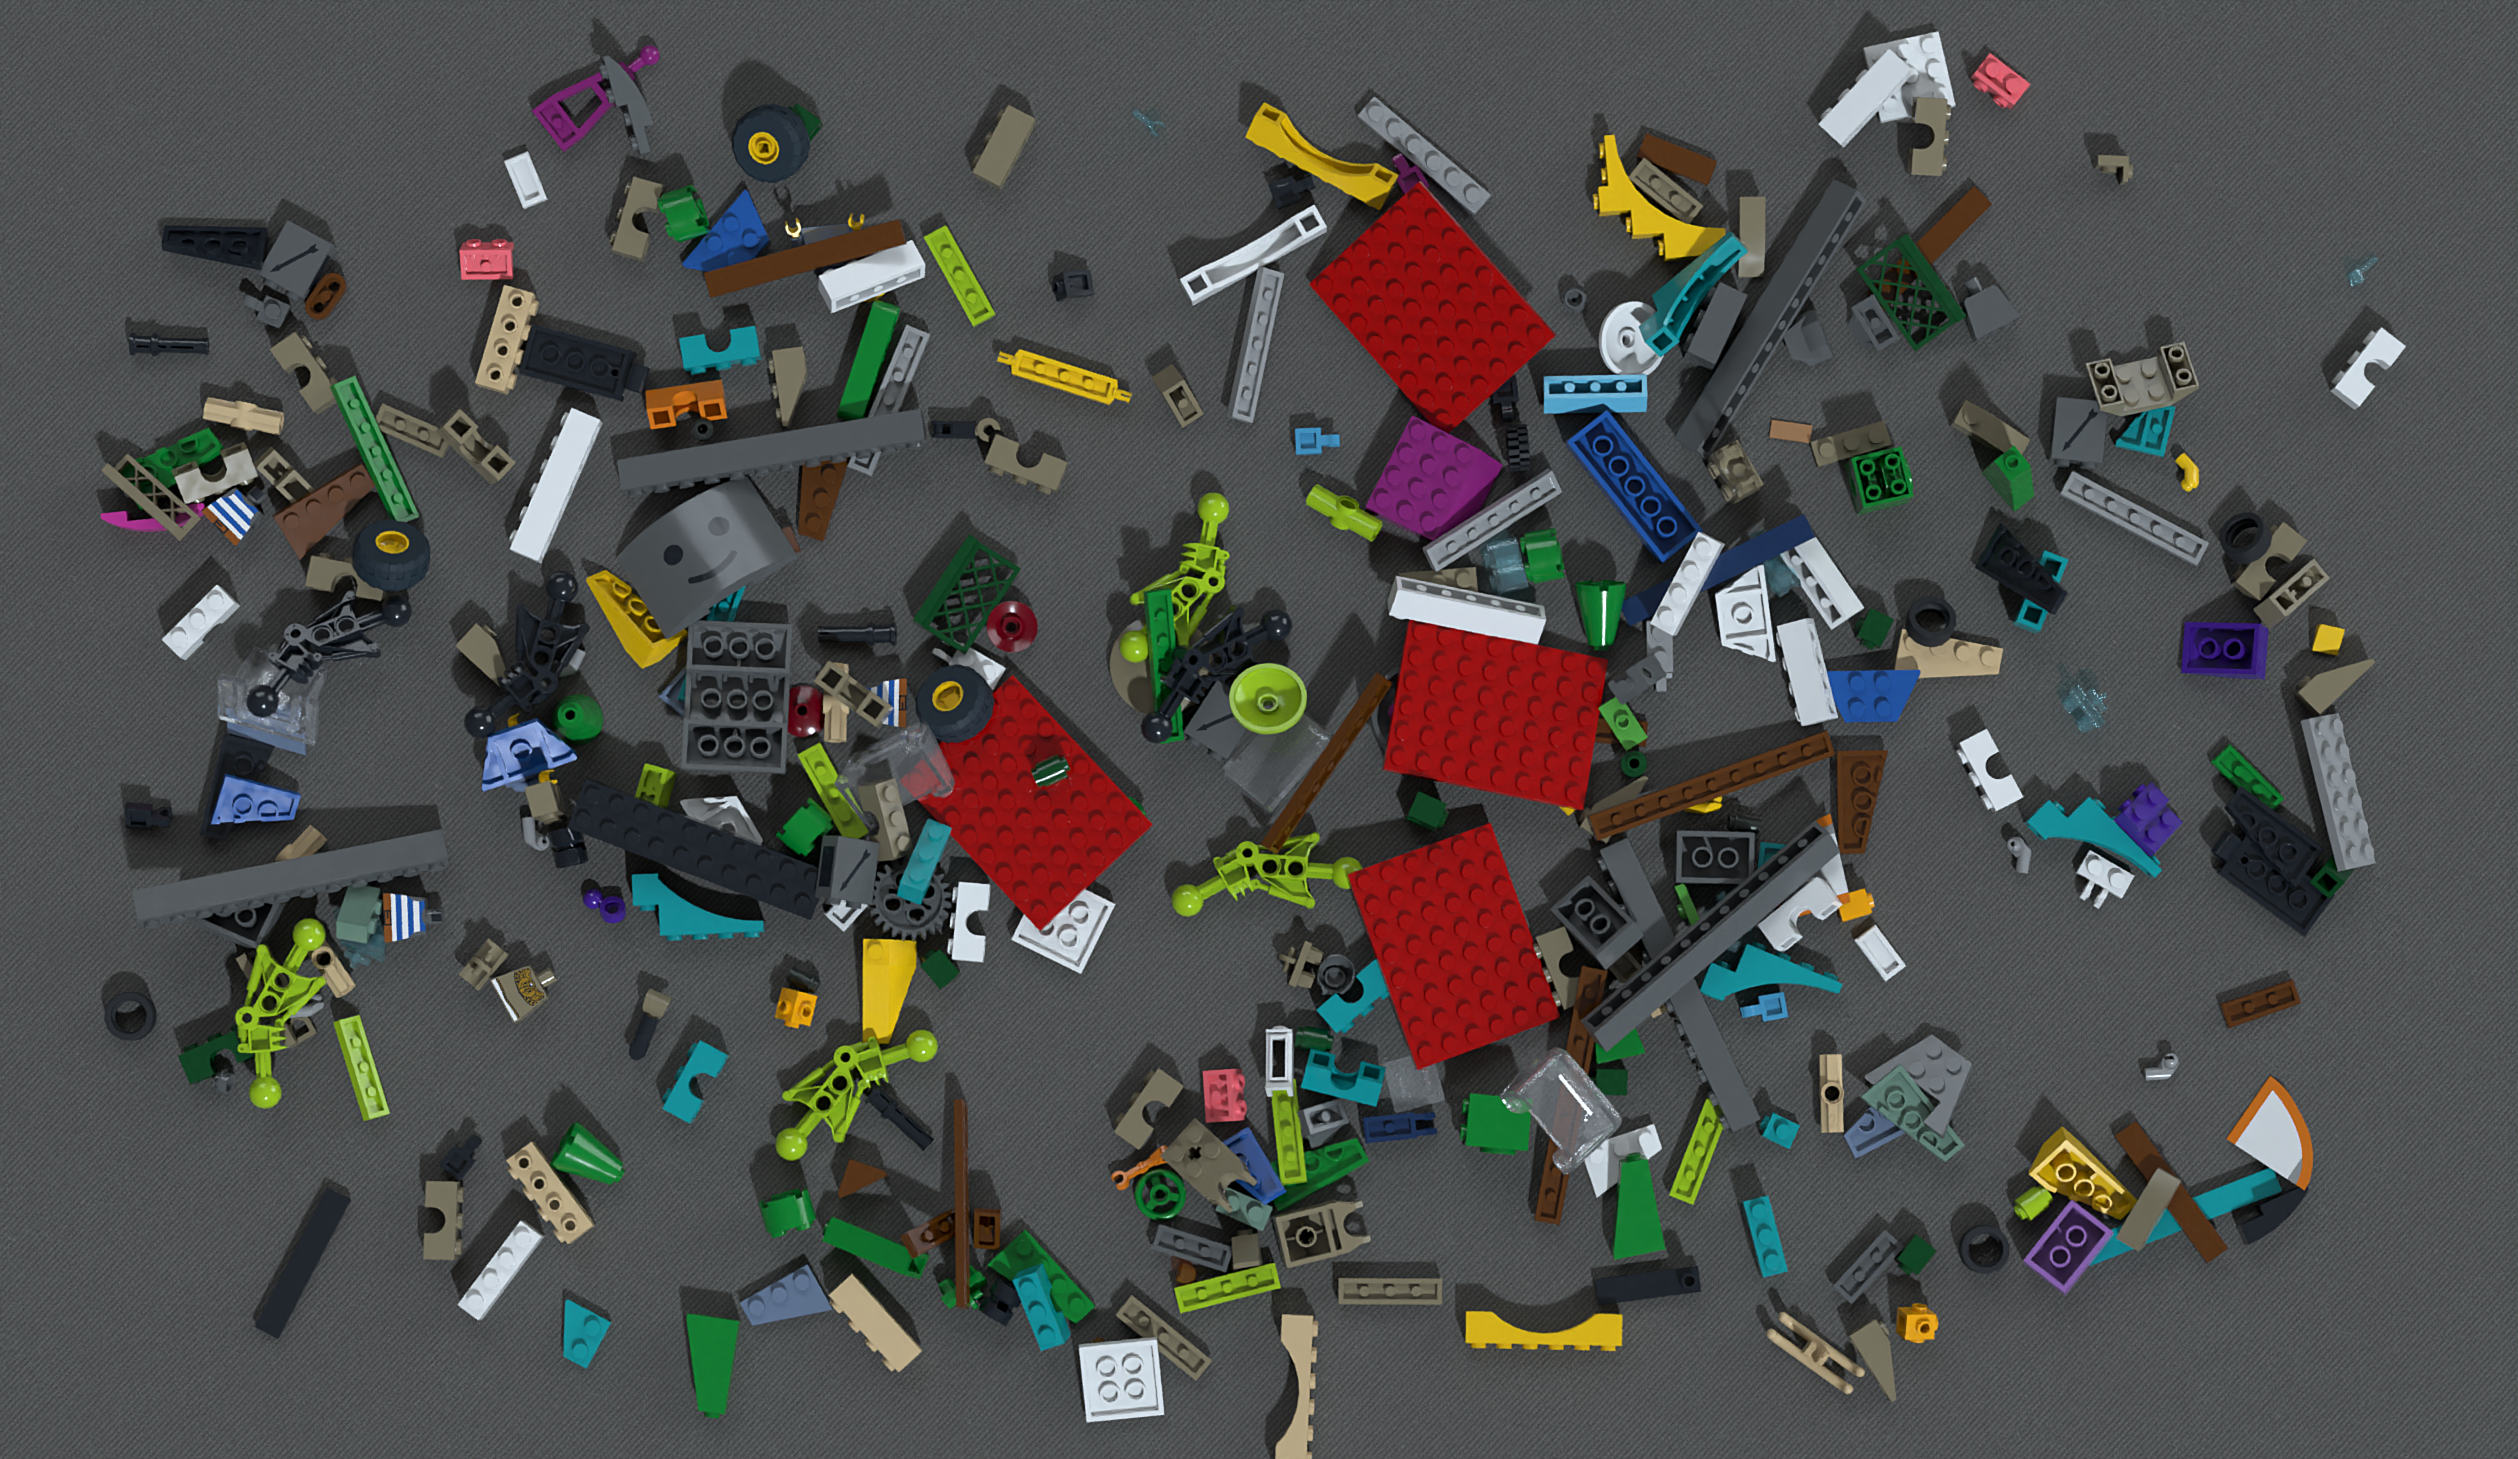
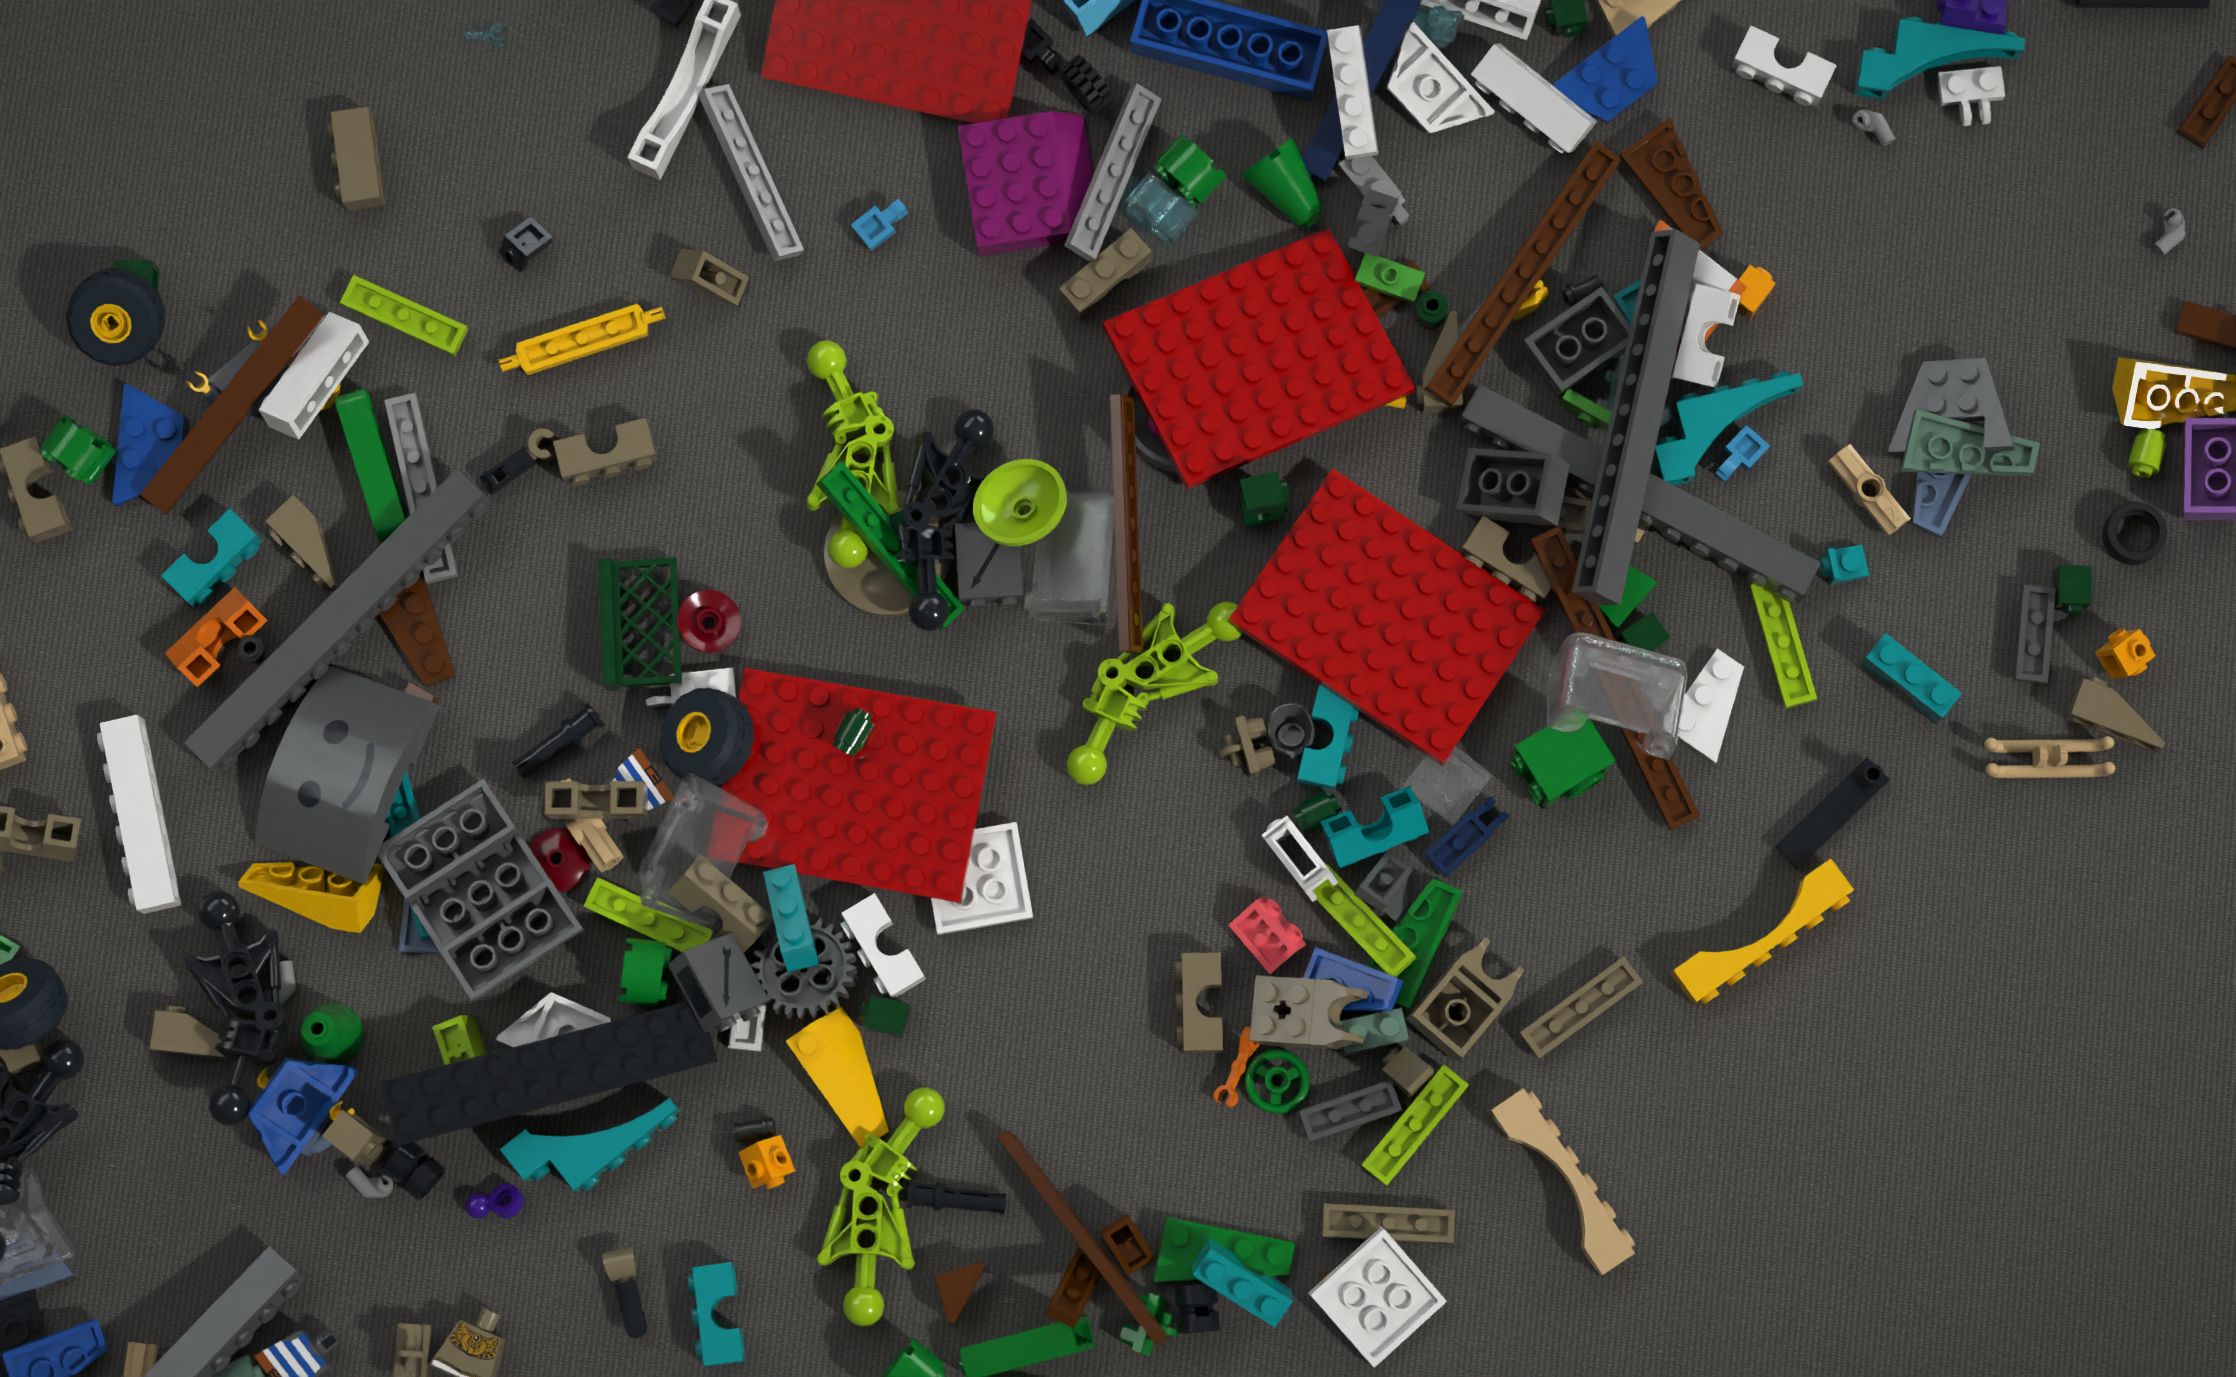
camera: 30 degrees left, 5 degrees down
(582, 364) = (80, 674): black hinge -> none
(1186, 1273) = (1362, 1142): clear orange hinge -> none
(1344, 512) = (960, 271): lime piece -> none
(1466, 610) = (1153, 276): white brick -> none
(1636, 1213) = (1765, 745): green slope -> none
(1879, 953) = (1811, 320): white tile -> none

